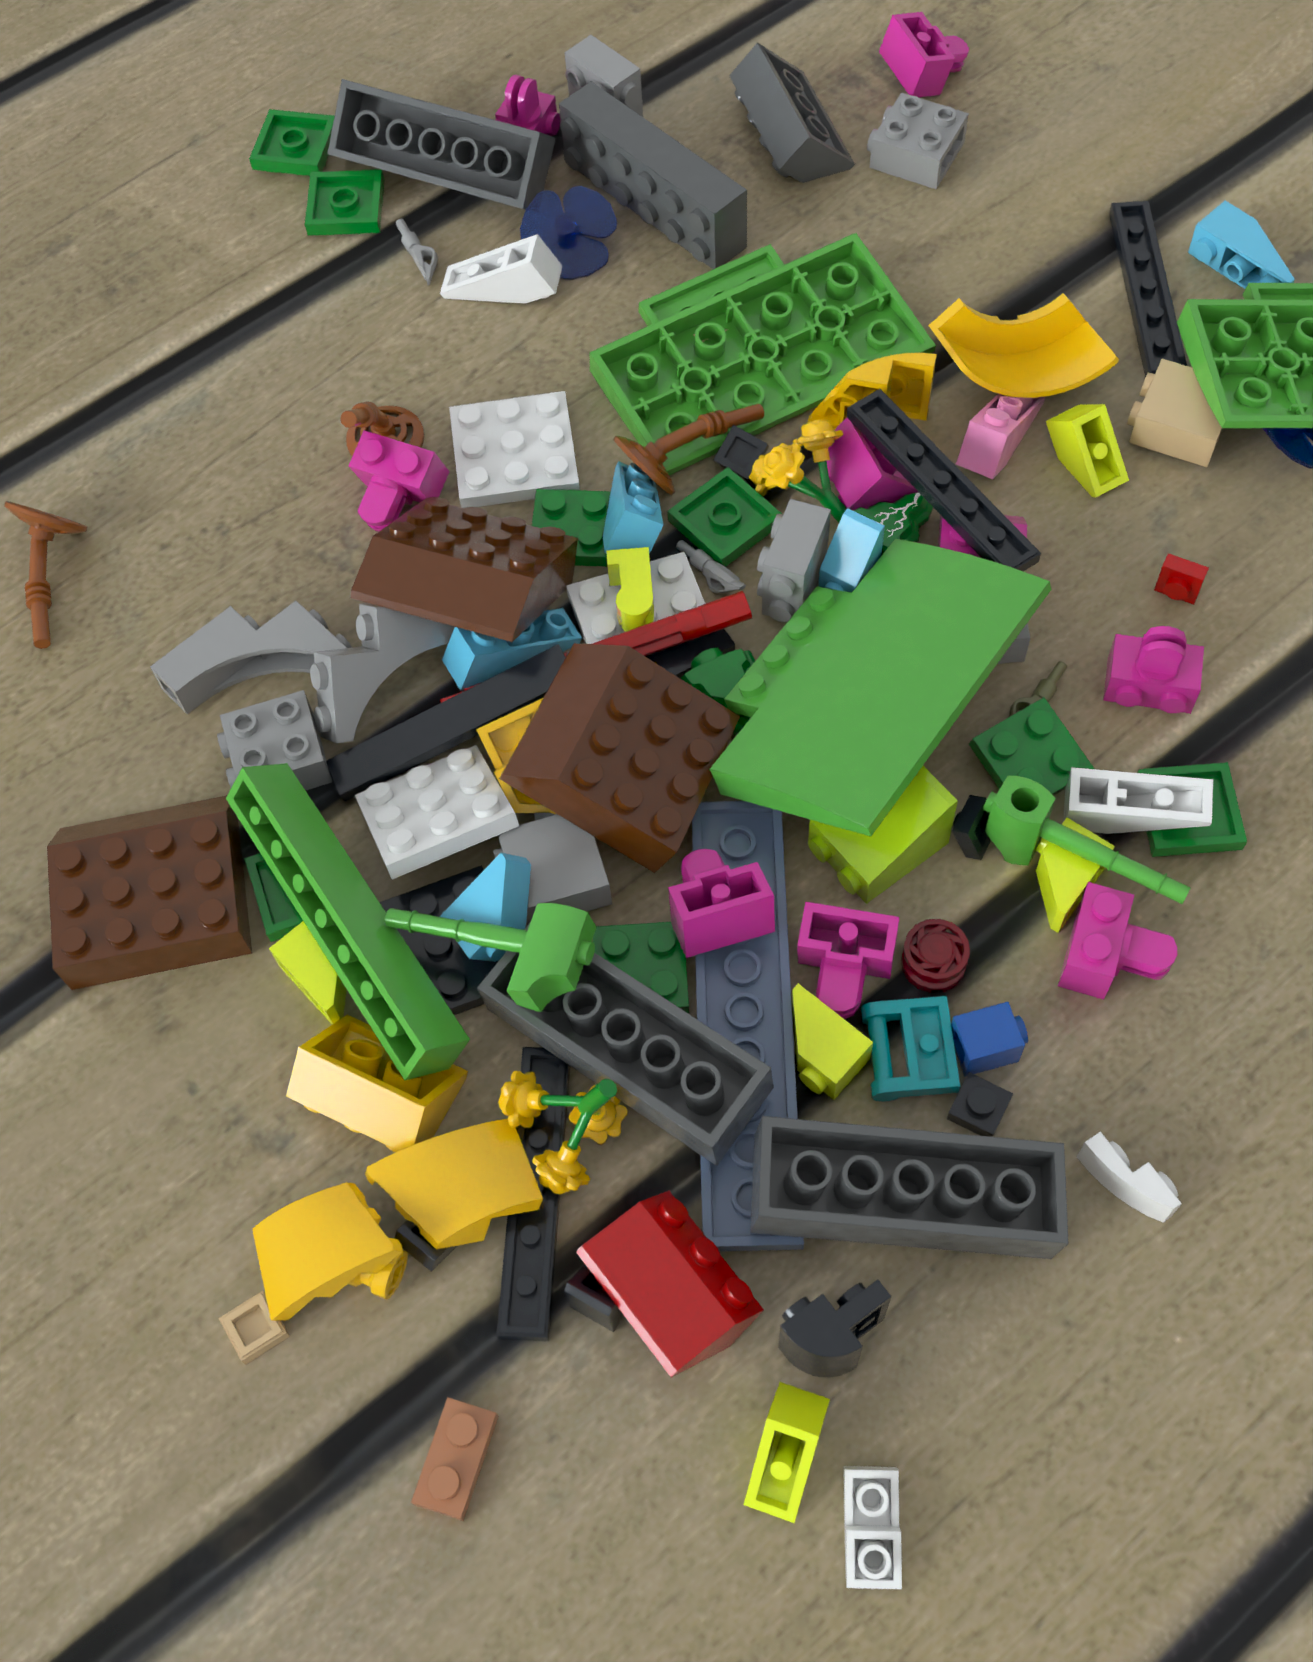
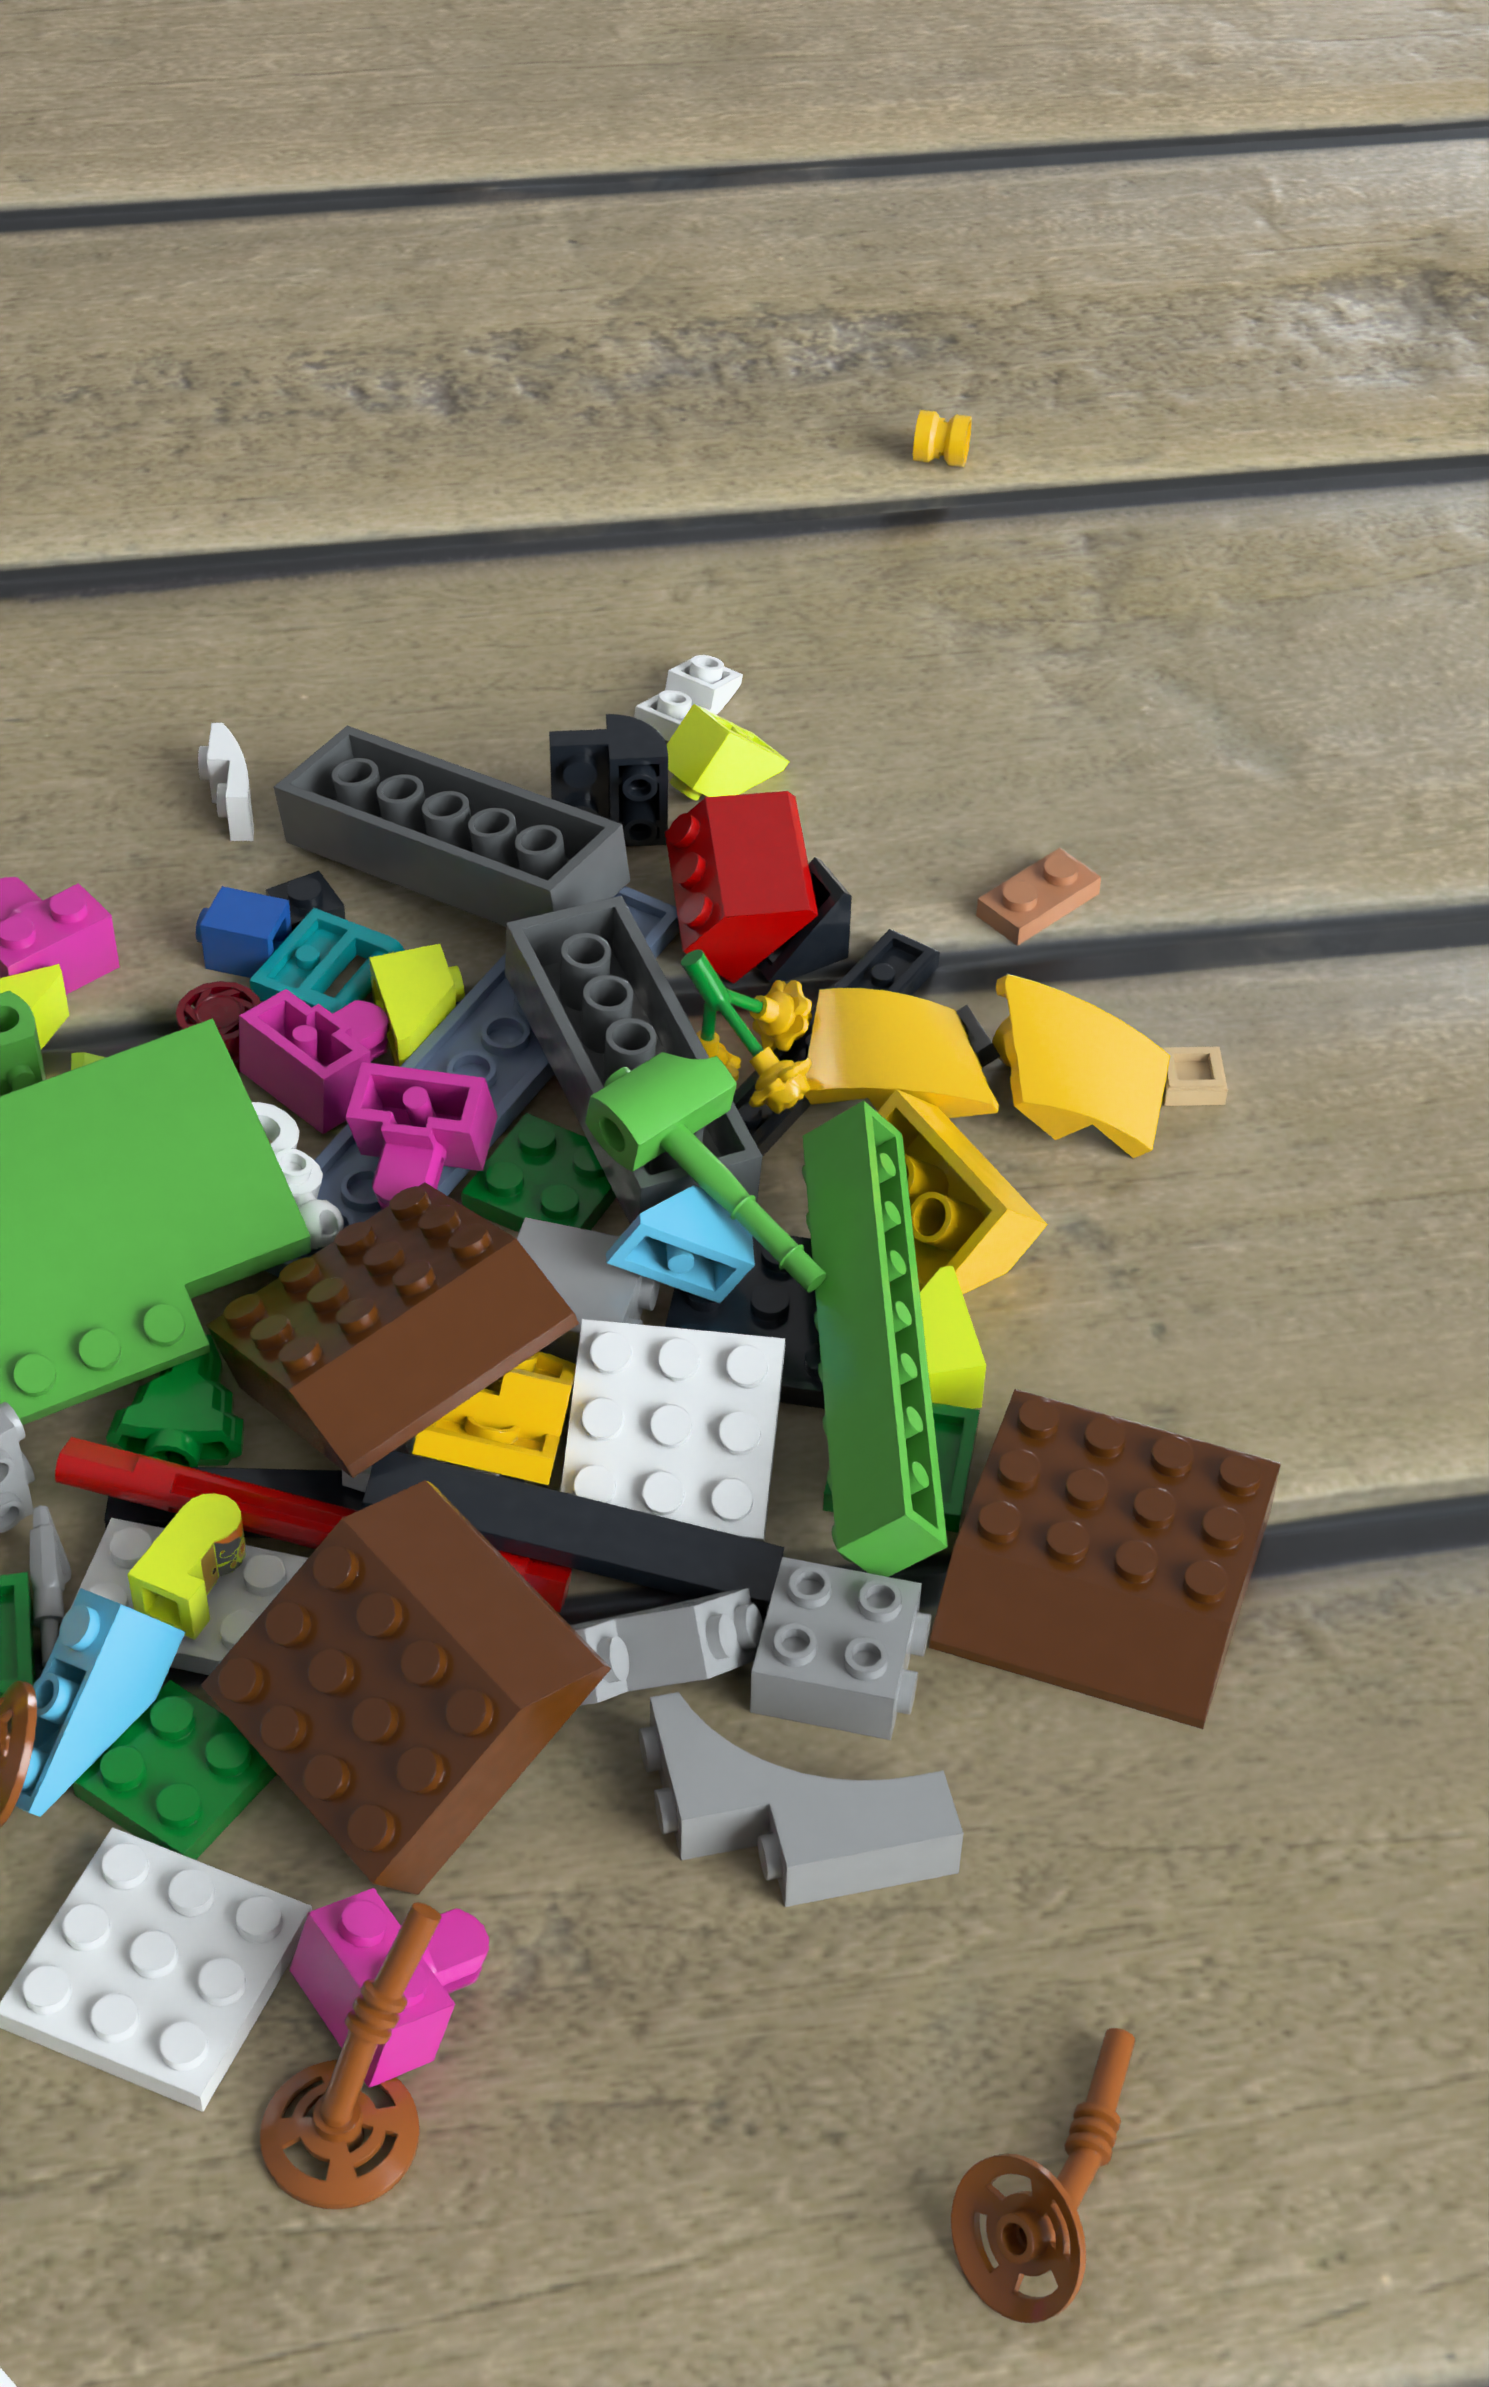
camera: 155 degrees left, 15 degrees down
(778, 836) = (302, 1175): none -> white piece

